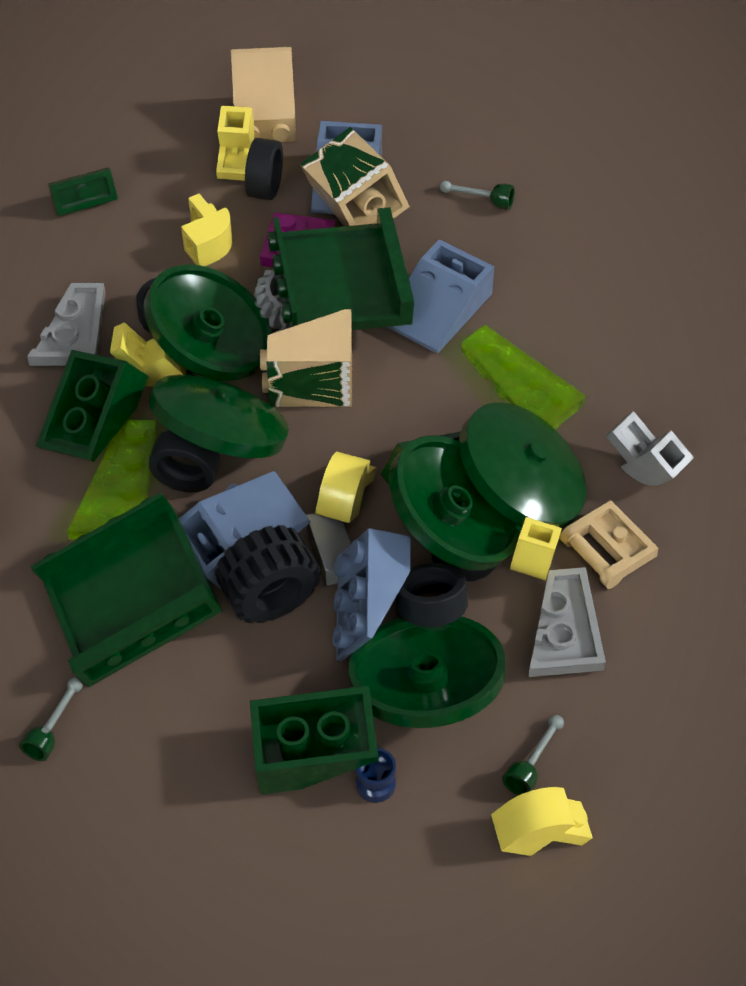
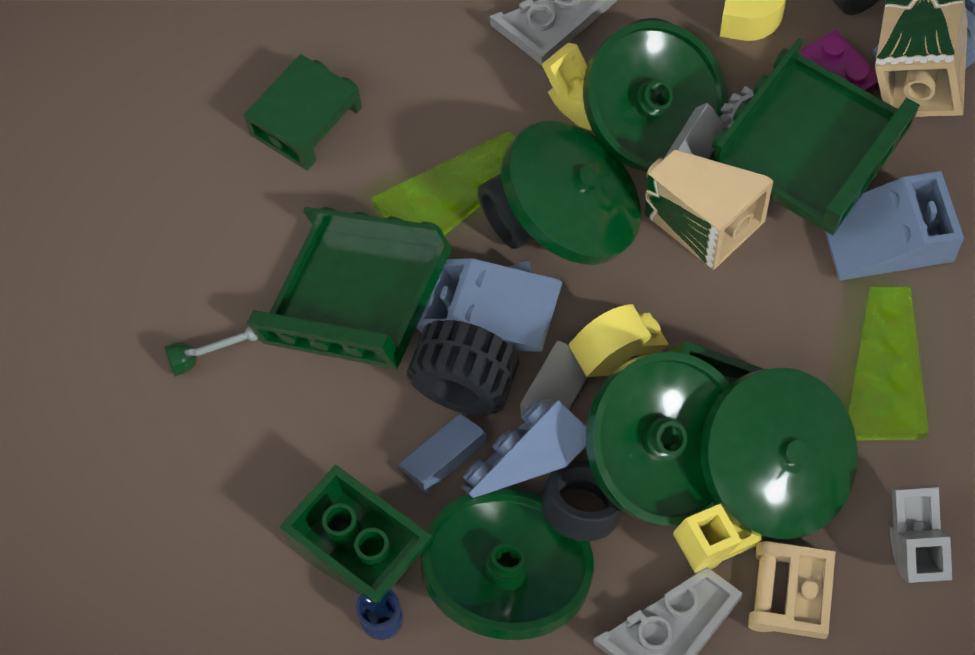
camera: 50 degrees right, 10 degrees up
(90, 405) = (492, 100): dark green slope -> none
(258, 327) = (698, 133): none -> light grey slope
(301, 647) = (443, 453): none -> sand blue slope

